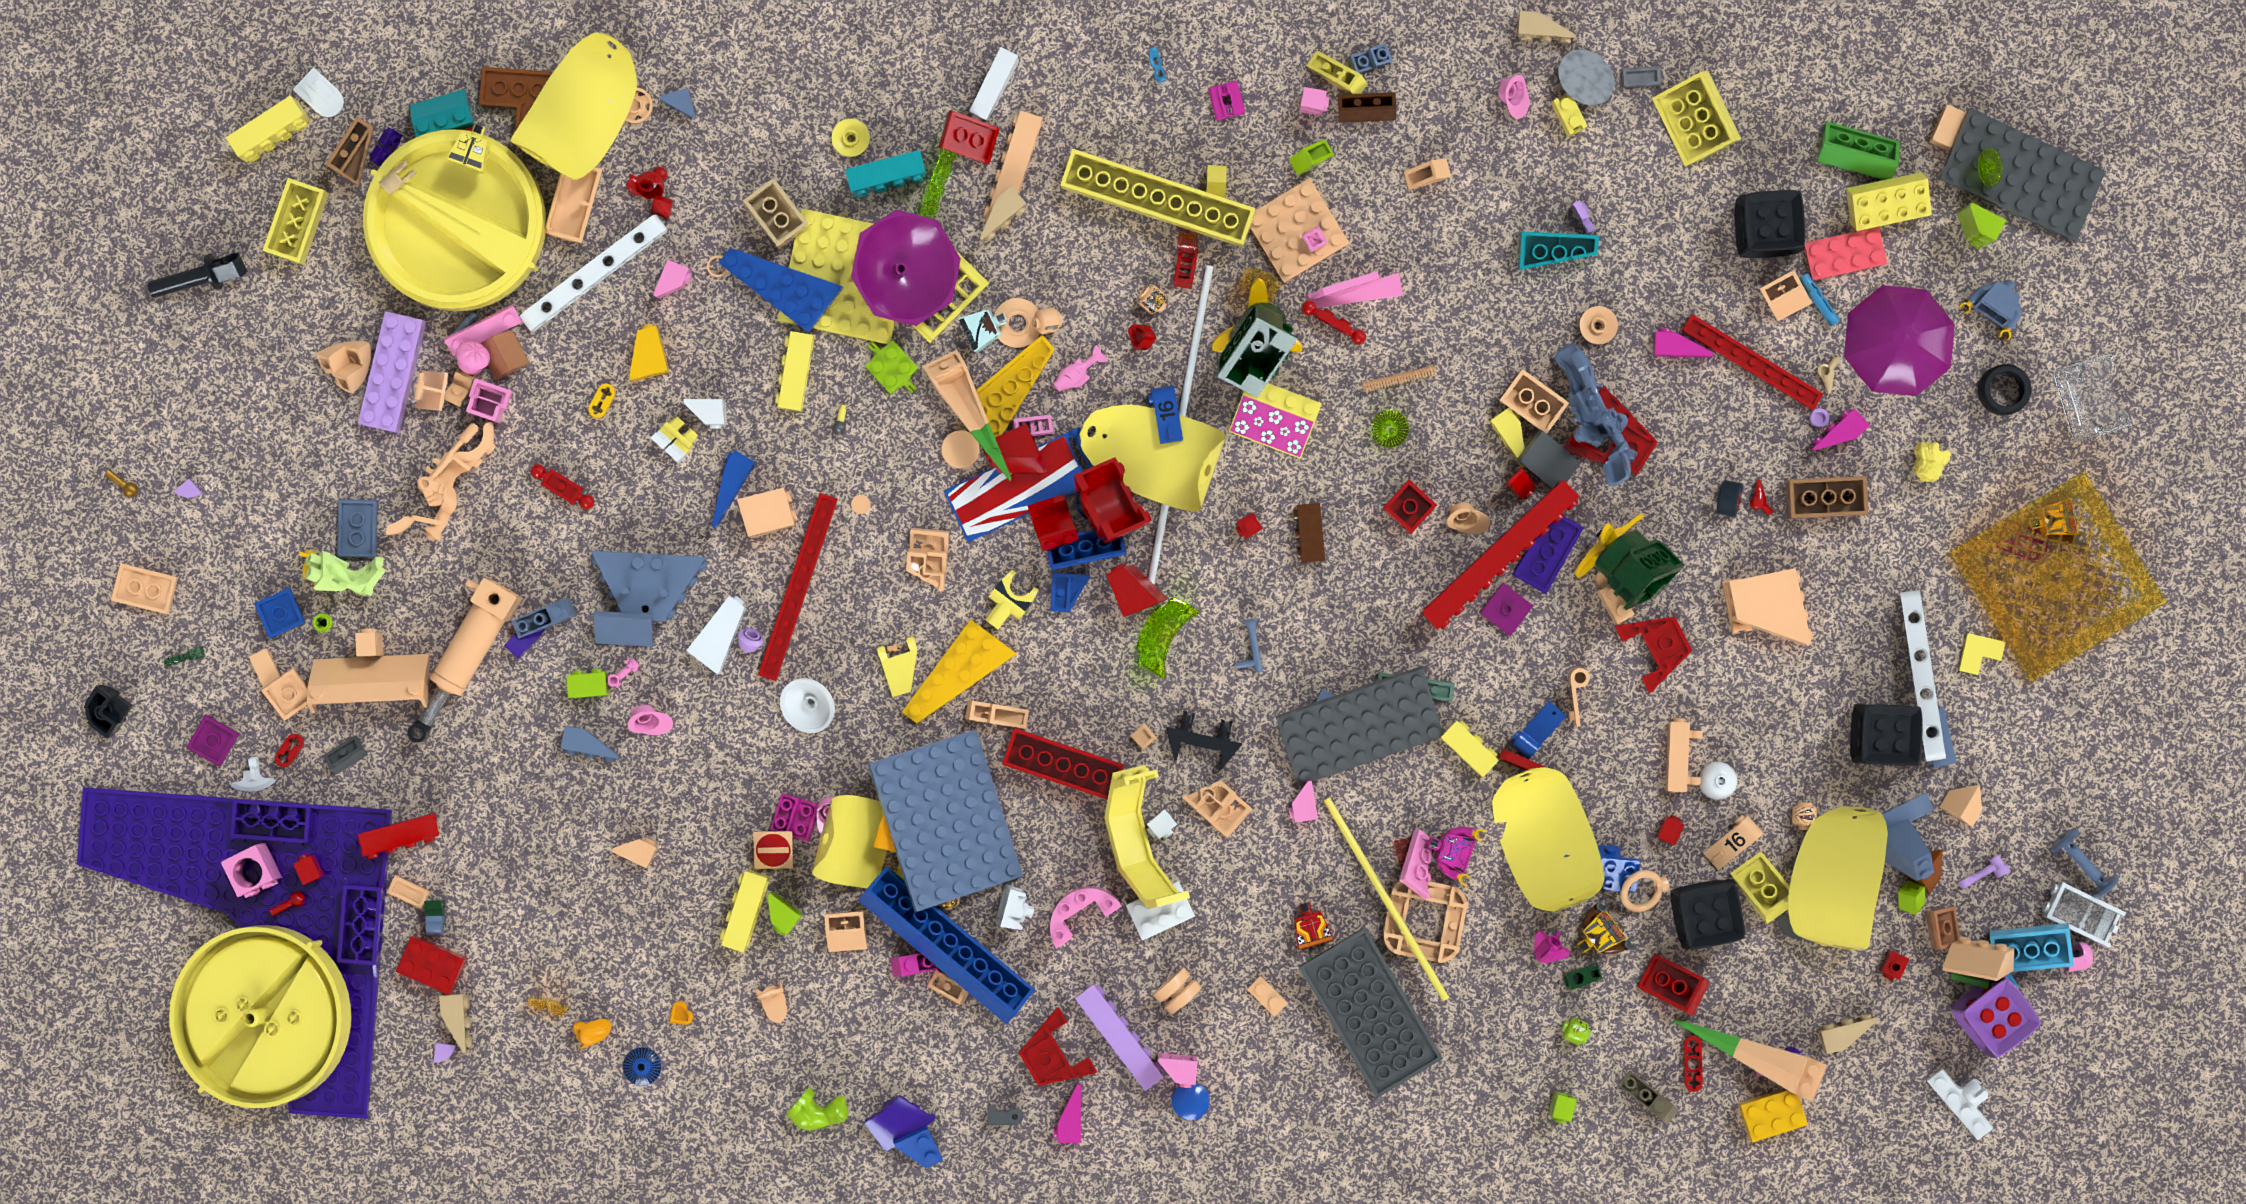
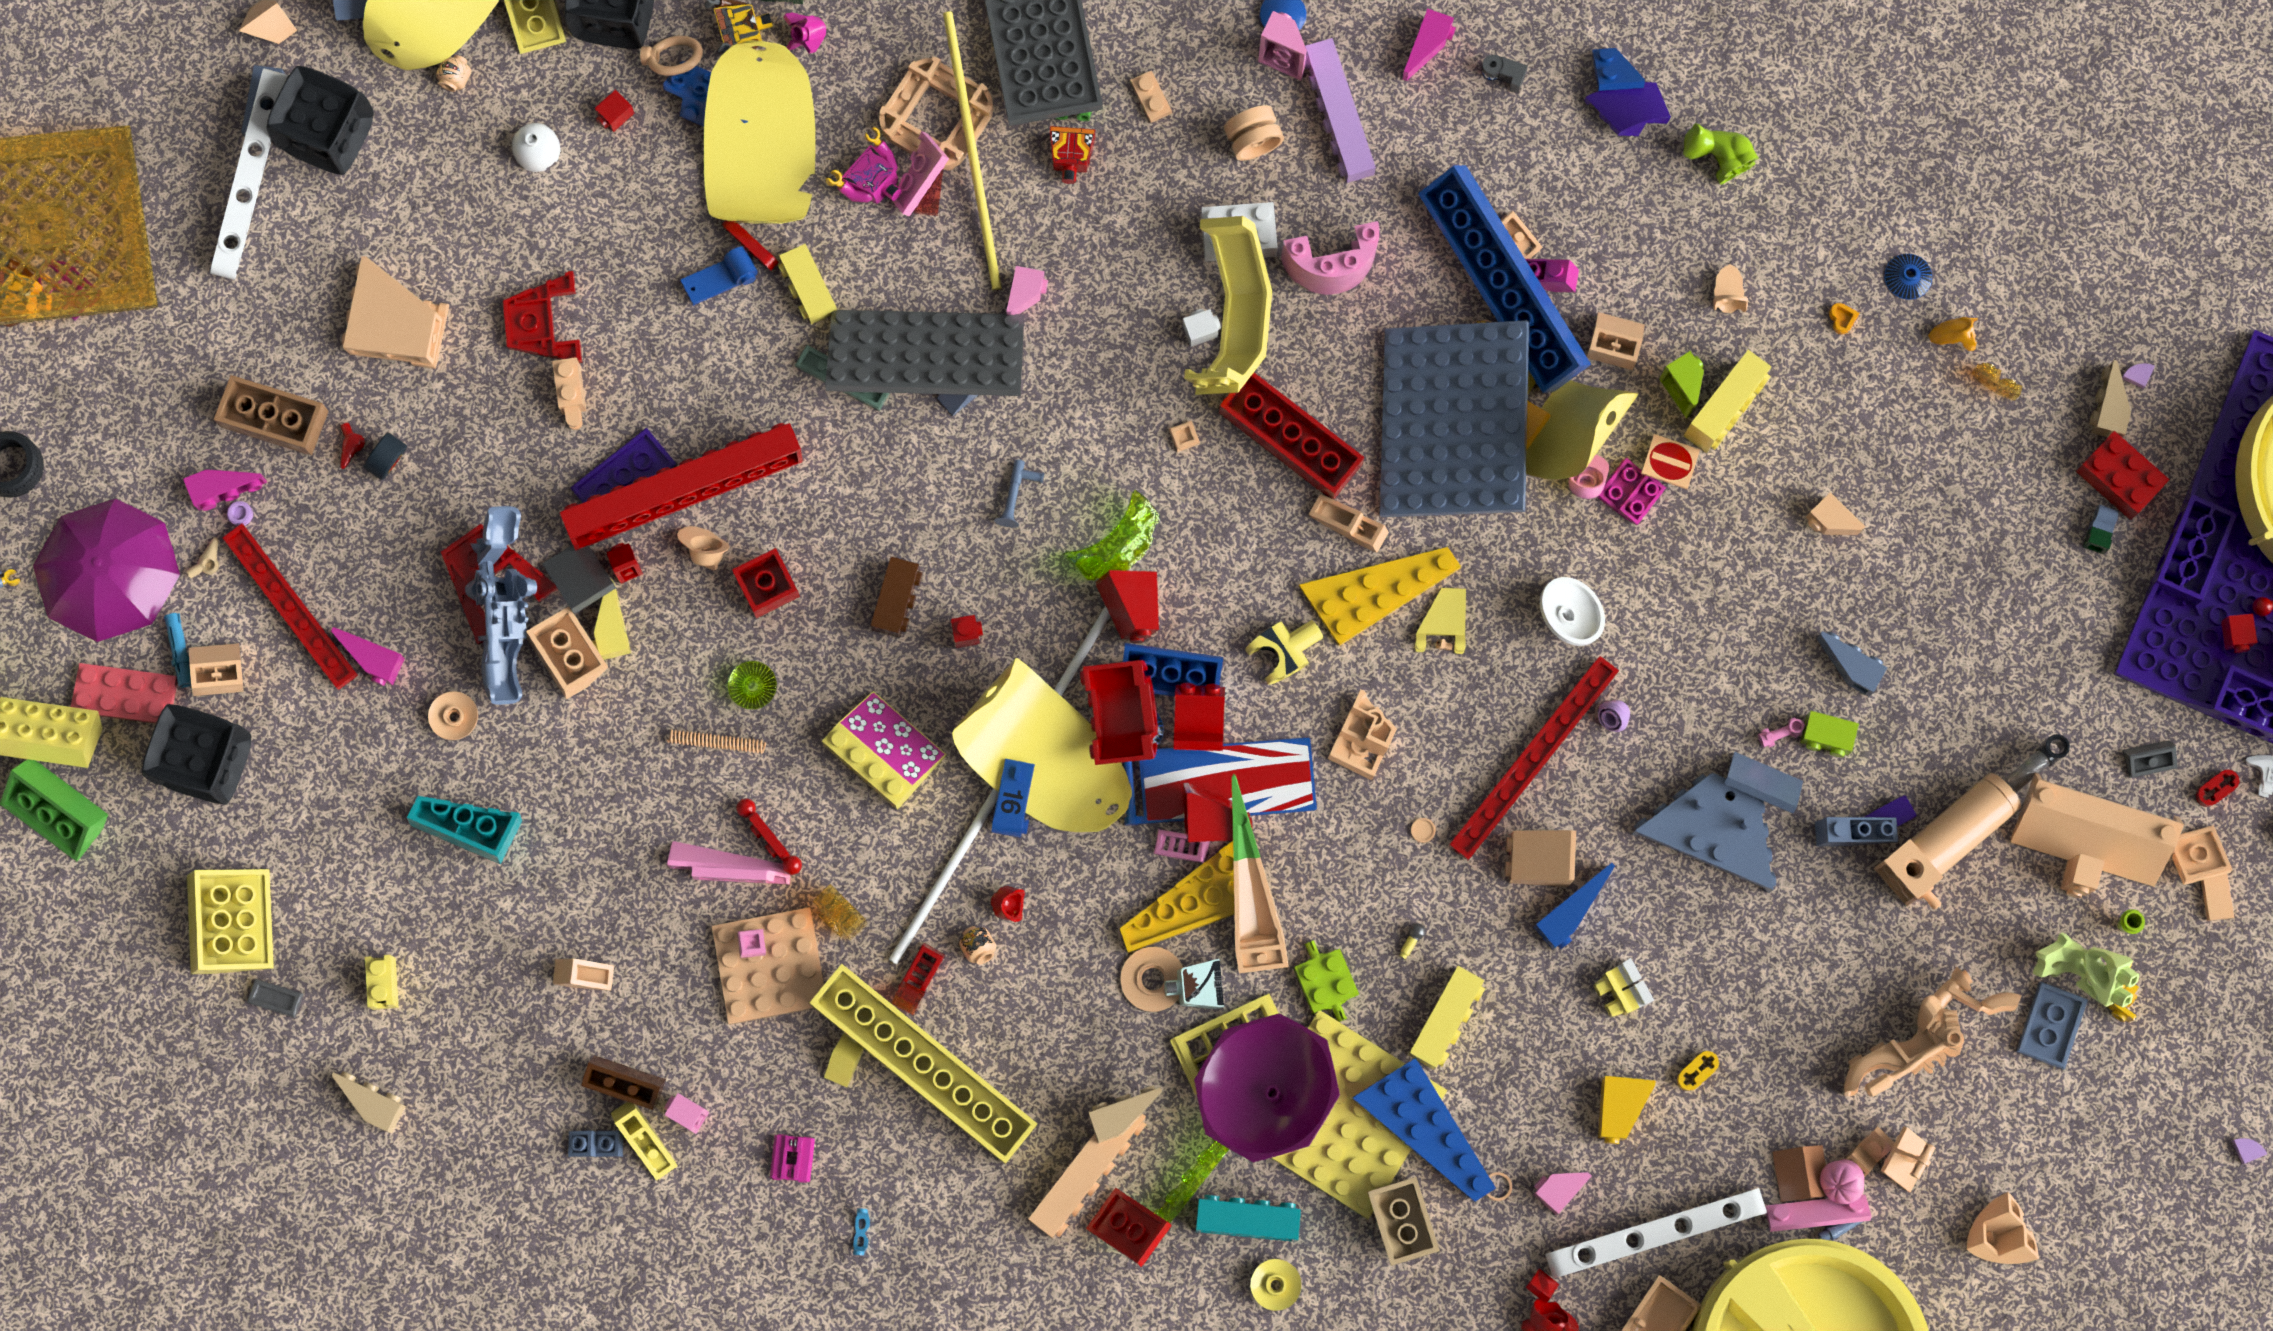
camera: 160 degrees left, 10 degrees down
(279, 613) = (2179, 956): blue plate -> none
(392, 372) = (1949, 1201): lavender brick -> none
(397, 835) = (2118, 636): red slope -> none
(408, 891) = (2123, 571): light nougat tile -> none
(488, 400) = (1841, 1119): bright pink plate -> none
(562, 486) = (1782, 983): red plate -> none
(648, 721) = (1770, 665): bright pink piece -> none
(709, 411) = (1571, 1007): white slope -> none
(716, 638) = (1654, 732): white slope -> none
(960, 449) = (1279, 850): light nougat tile -> none
(994, 84) = (1074, 1281): white slope -> none
(1013, 908) = (1411, 293): white brick -> none
(1046, 1058) = (1432, 116): red wing -> none
(1047, 321) = (1115, 966): light nougat head -> none
(1066, 590) = (1213, 635): blue wing -> none
(1075, 374) = (1105, 890): bright pink animal -> none
(1186, 735) = (1100, 395): black hose -> none
(1215, 806) = (1130, 325): light nougat slope -> none
(1255, 344) = (871, 834): dark green brick -> none
(1311, 156) = (716, 1048): lime slope -> none
(1506, 609) = (699, 427): magenta plate -> none
(1515, 95) = (437, 1031): bright pink piece -> none
(1577, 678) = (649, 313): light nougat door -> none
(1581, 212) = (416, 858): lavender plate -> none
(1586, 77) = (341, 1020): flat silver sticker -> none
(1631, 563) = (529, 414): dark green brick -> none
(1678, 756) = (569, 190): light nougat brick -> none
(1733, 842) = (534, 74): light nougat door -> none
(1910, 809) = (334, 35): sand blue slope -> none
(1930, 461) = (132, 413): light yellow hair -> none
(1976, 648) = (174, 187): light yellow tile -> none

